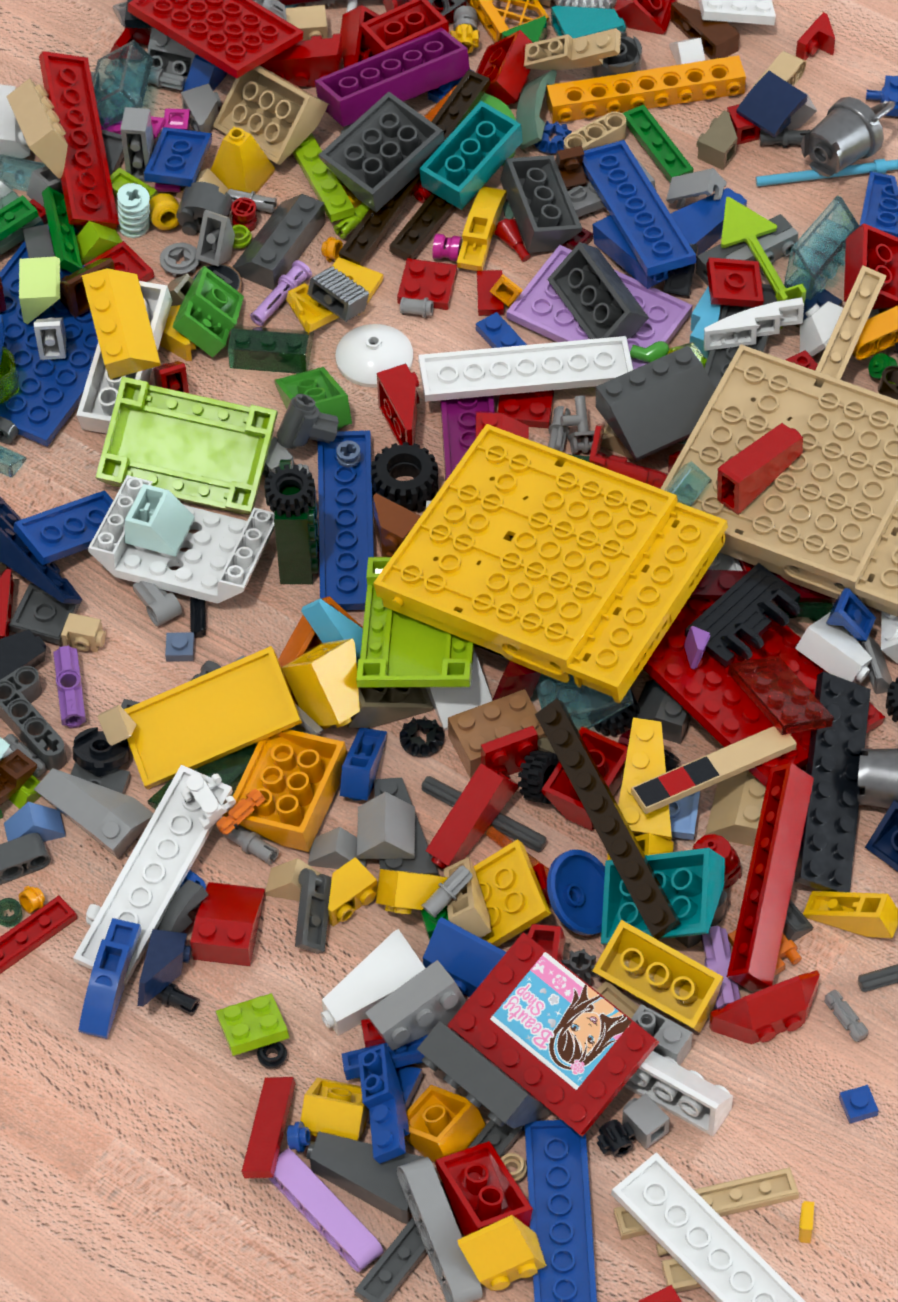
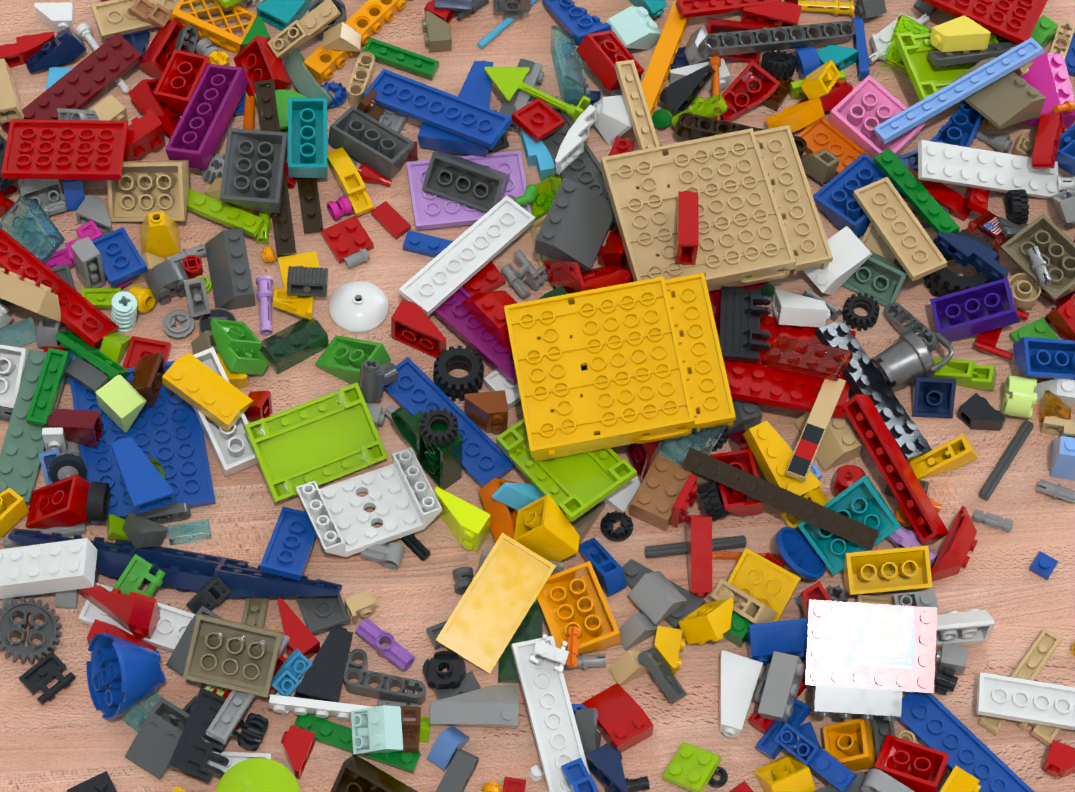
camera: 45 degrees left, 5 degrees up
(50, 338) = (158, 429): white slope -> none
(116, 724) = (447, 648): tan slope -> none
(157, 521) = (347, 503): light aqua slope -> none
(179, 647) = (423, 572): sand blue plate -> none
(261, 618) = (464, 520): none -> neon yellow slope
(343, 449) = (409, 386): sand blue bush -> none
(447, 891) = (738, 607): light grey axle -> none
(506, 290) = (404, 212): light orange slope -> none
(607, 85) = (342, 38): none -> tan slope
(688, 483) = (650, 265): clear light blue slope -> none
(694, 185) = (455, 72): light grey hinge -> none
(695, 645) = (737, 361): medium lavender slope -> none
(852, 614) = (794, 282): blue slope -> none

